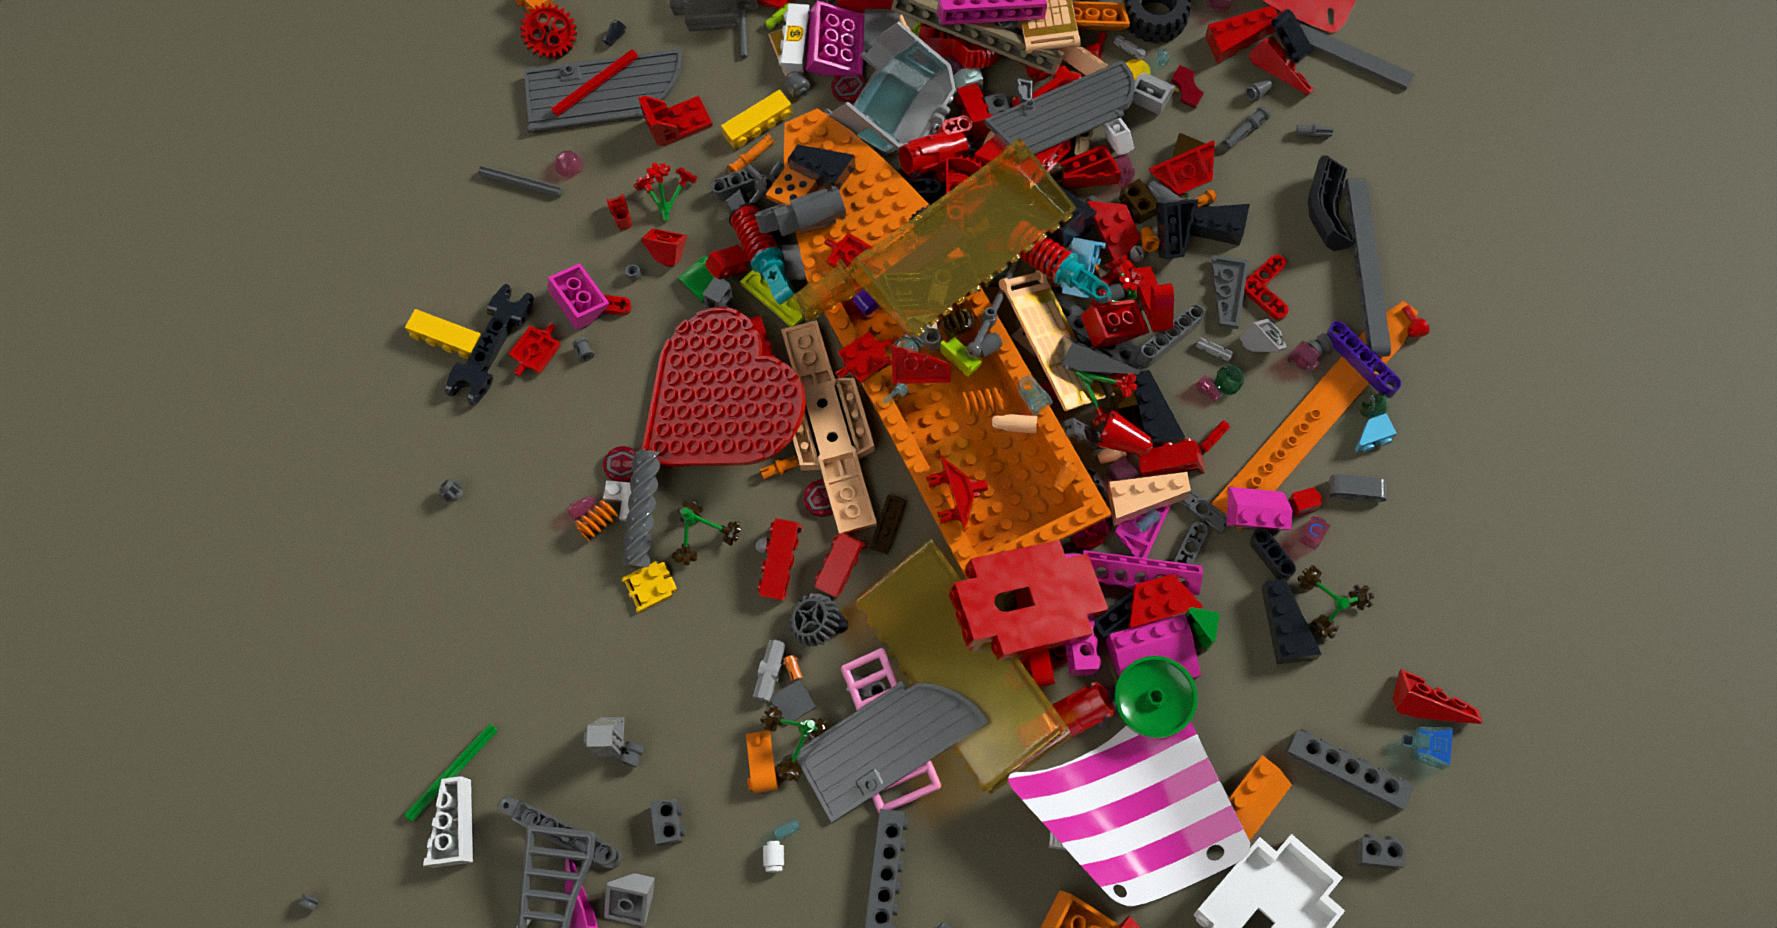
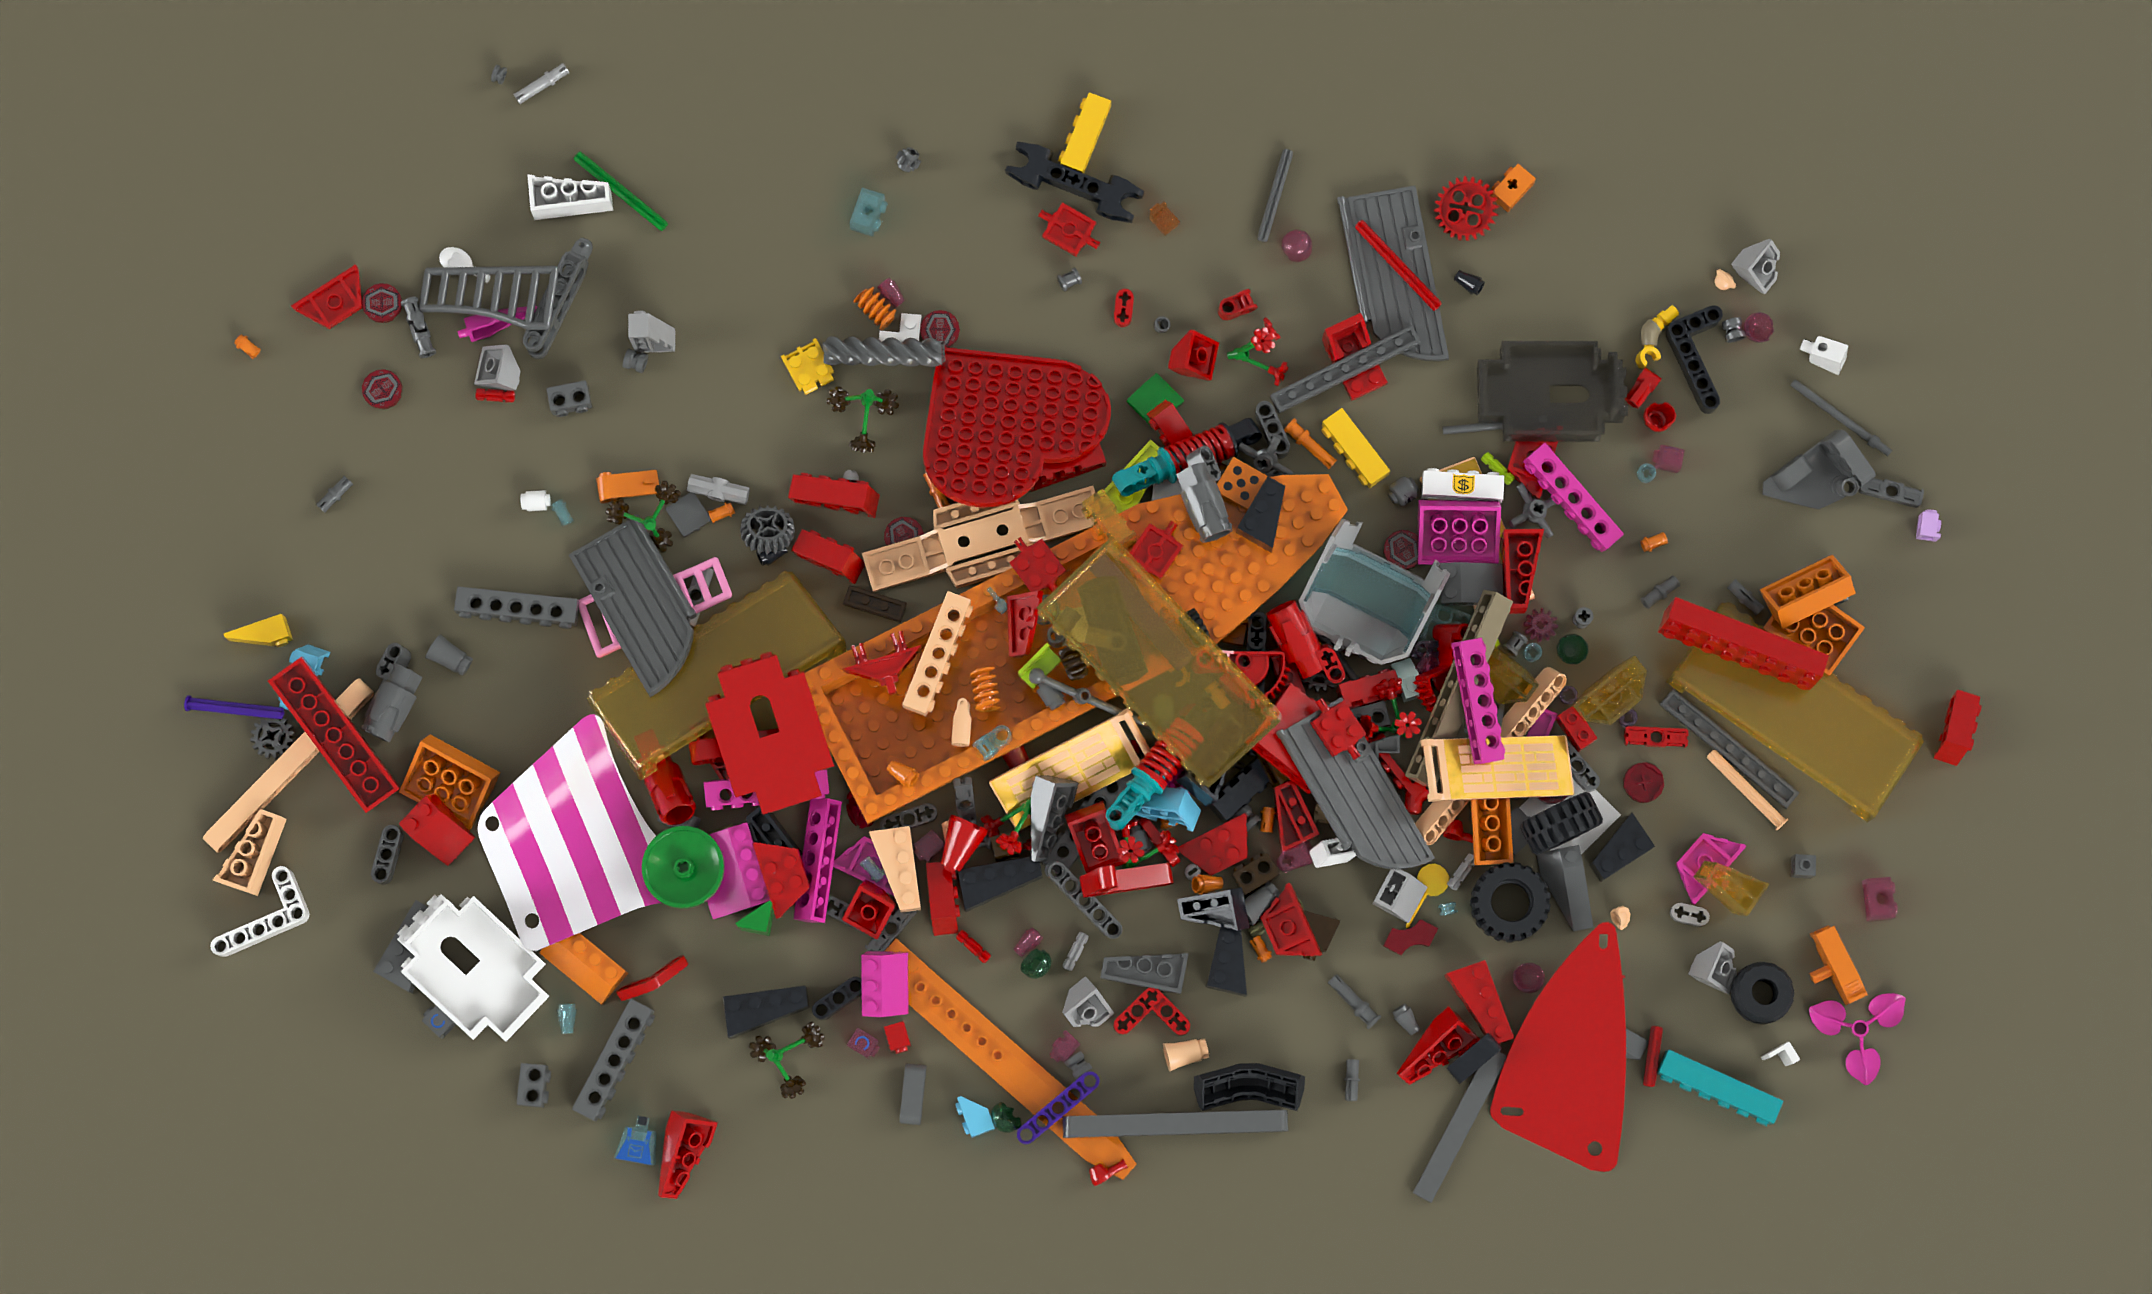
camera: 85 degrees right, 10 degrees up
(320, 847) = (541, 83): none -> light grey pin
(507, 535) = (868, 201): none -> clear light blue brick
(532, 271) = (1163, 218): none -> clear orange bracket
(577, 295) = (1130, 268): dark pink slope -> none
(658, 902) = (495, 395): none -> red axle
(685, 124) = (1345, 369): none -> dark grey tile
(718, 294) = (1126, 416): dark grey brick -> none
(975, 84) = (1403, 725): none -> red plant
(991, 467) = (951, 604): none -> light nougat brick
(1015, 117) = (1338, 728): none -> red plate
(1087, 191) = (1267, 819): none -> orange pin
(1187, 522) = (869, 909): none -> red slope
(1275, 726) = (654, 981): none -> red beam
(1302, 258) = (1185, 1053): none -> light nougat plant
(1306, 819) = (566, 1016): none -> clear light blue cone

